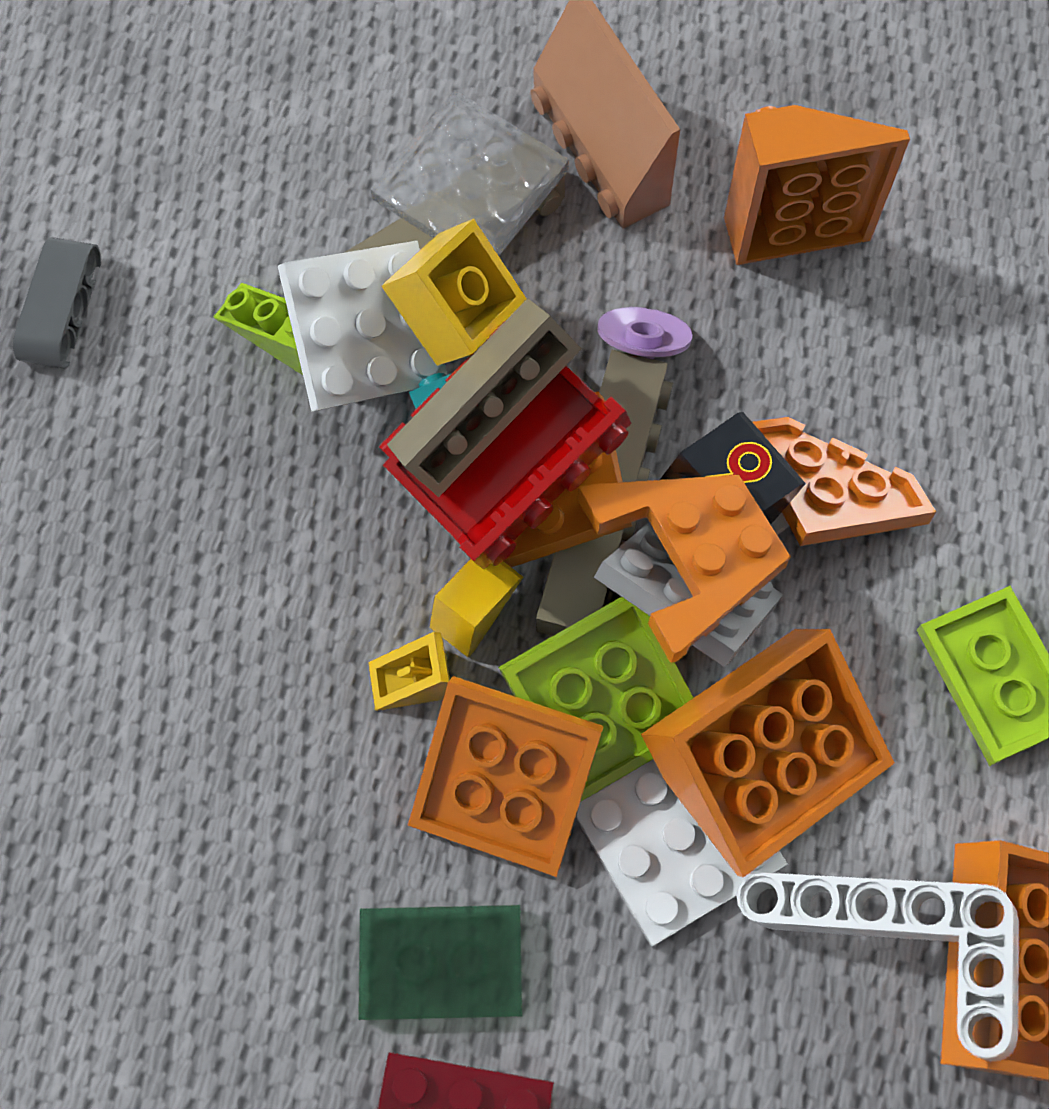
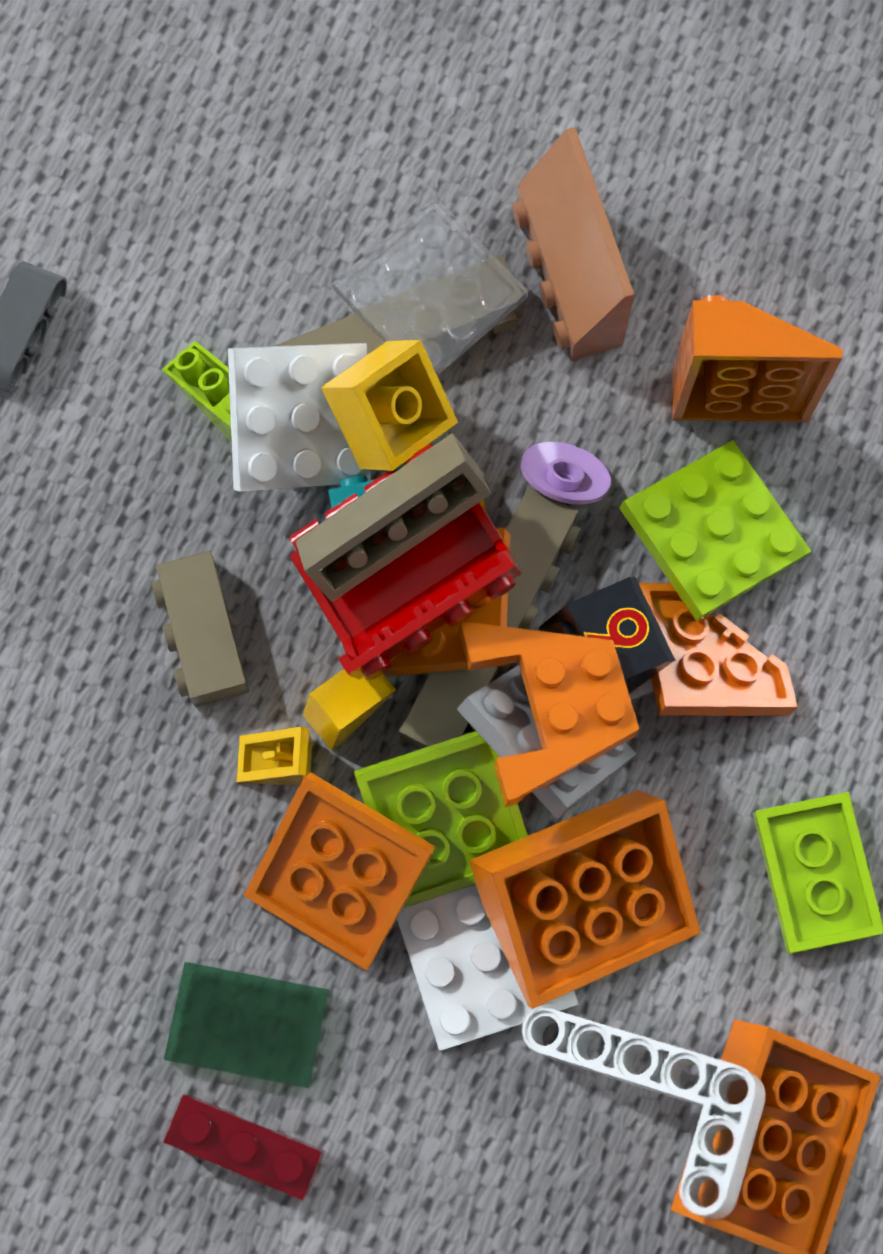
camera: 10 degrees right, 5 degrees up
(305, 560) = (199, 629): none -> dark tan brick
(807, 358) = (714, 530): none -> lime plate

